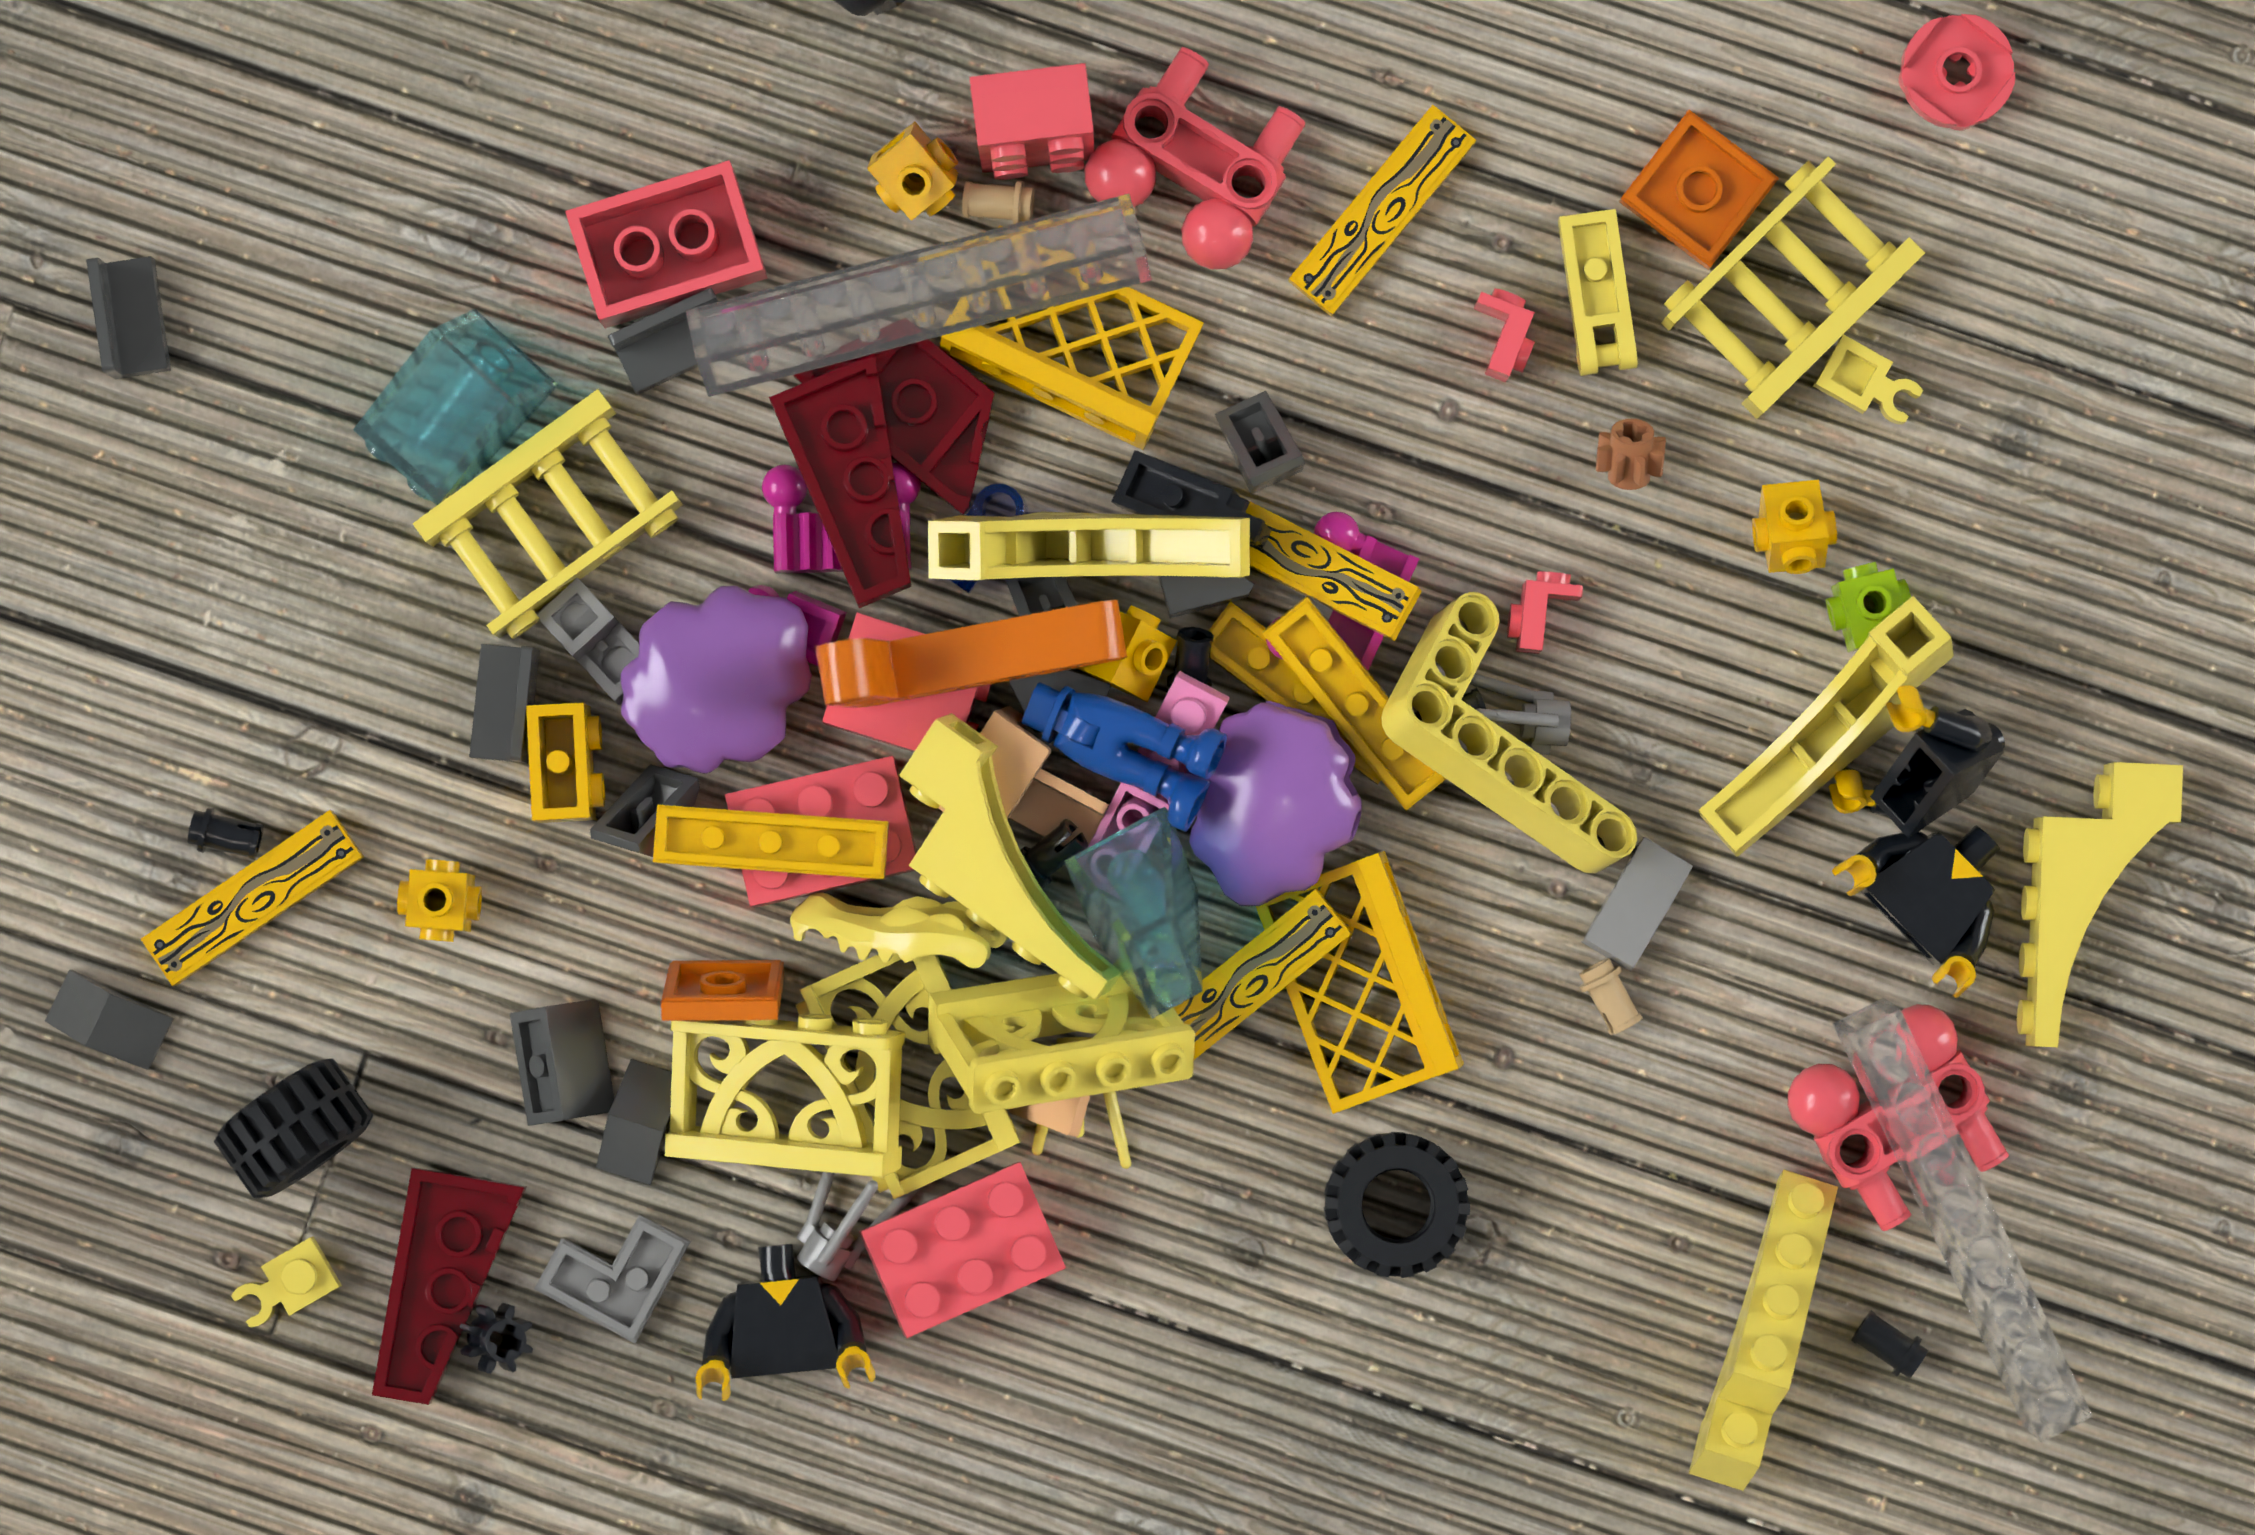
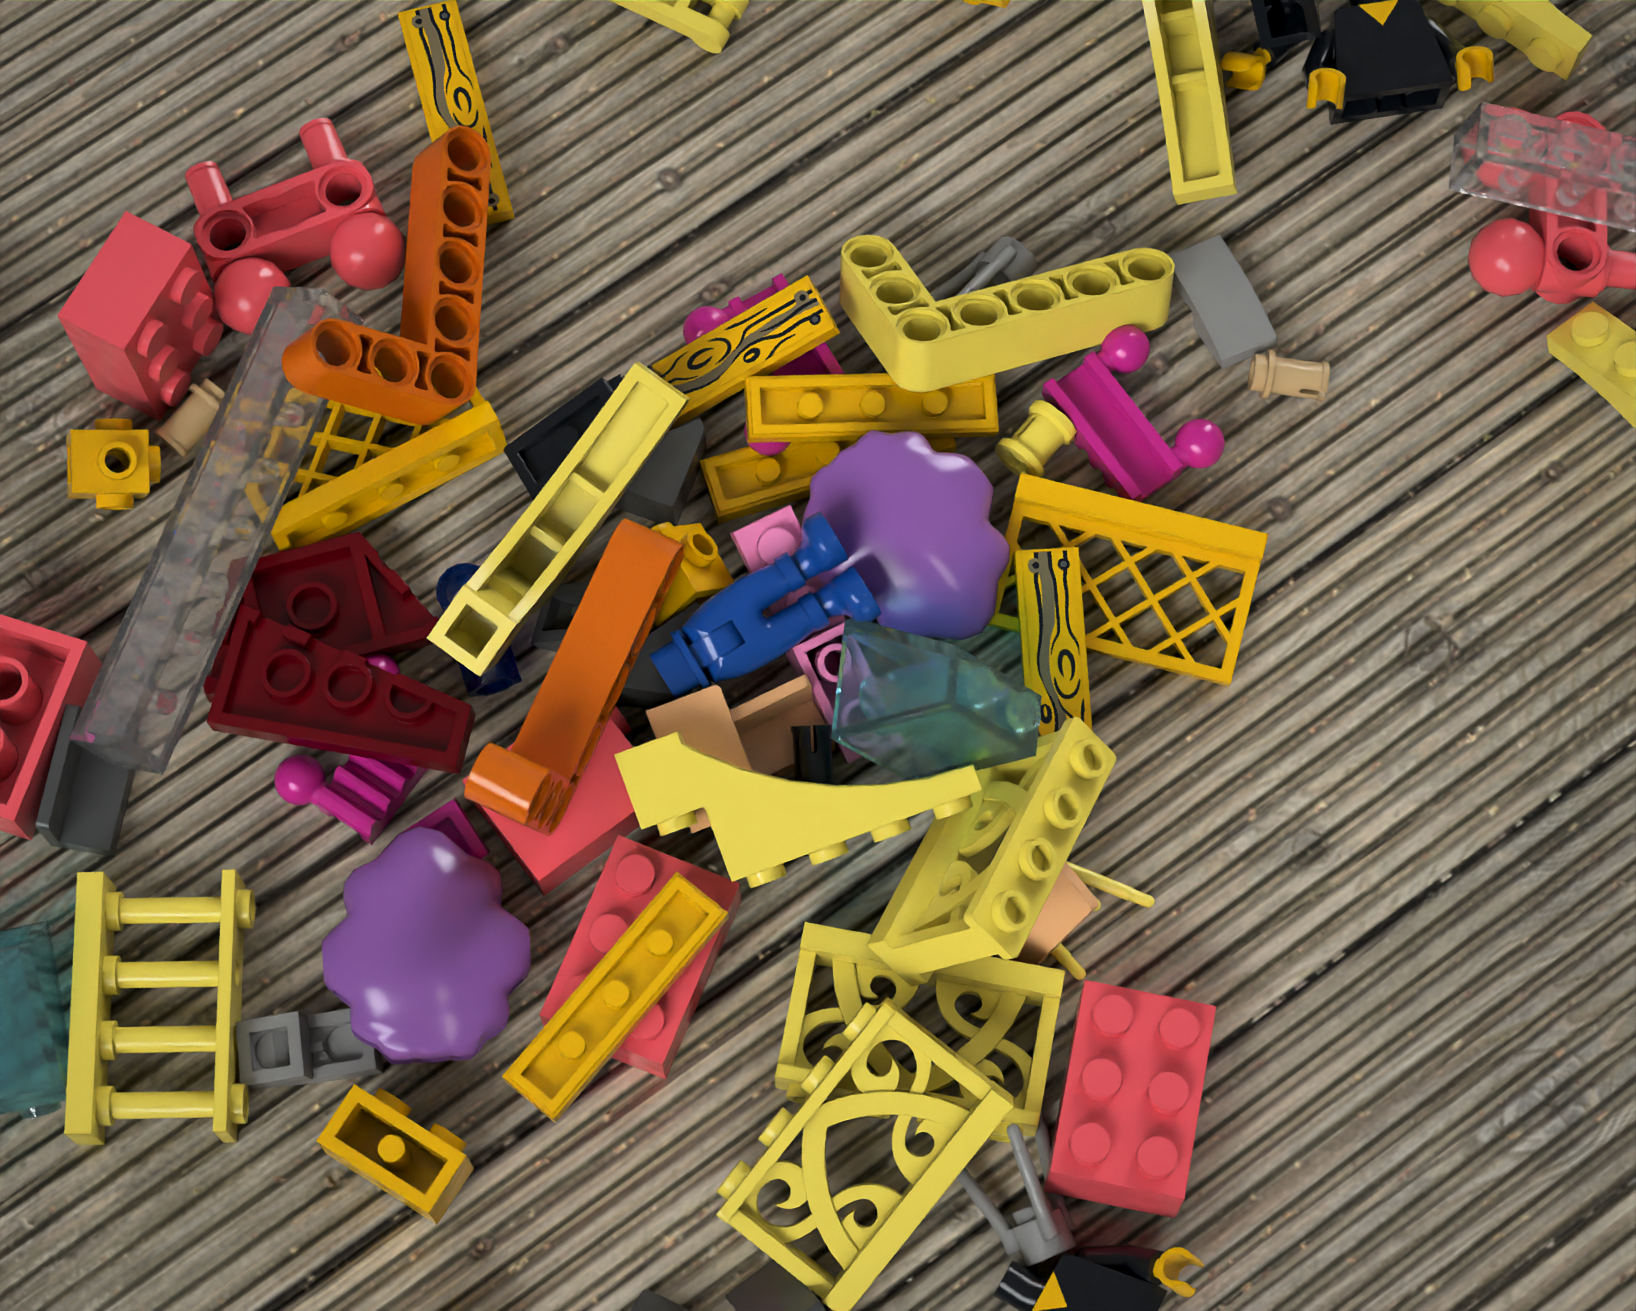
camera: 55 degrees left, 15 degrees down
(502, 692) = (300, 1176): dark grey panel -> none
(633, 816) = (500, 1119): dark grey slope -> none
(723, 990) = (723, 1149): orange tile -> none
(909, 928) = (785, 933): light yellow animal -> none
(1192, 654) = (721, 518): black pin -> none
(1201, 311) = (442, 238): none -> orange beam
(1260, 442) = (580, 339): dark grey slope -> none
(1421, 842) = (1036, 440): none -> light yellow bush
(1447, 1204) = (1377, 632): black tyre -> none
(1472, 896) = (1115, 429): none -> dark pink gear
(1512, 346) = (652, 82): coral bracket -> none
(1528, 618) = (896, 213): coral bracket -> none
(1630, 454) = (820, 48): nougat gear -> none

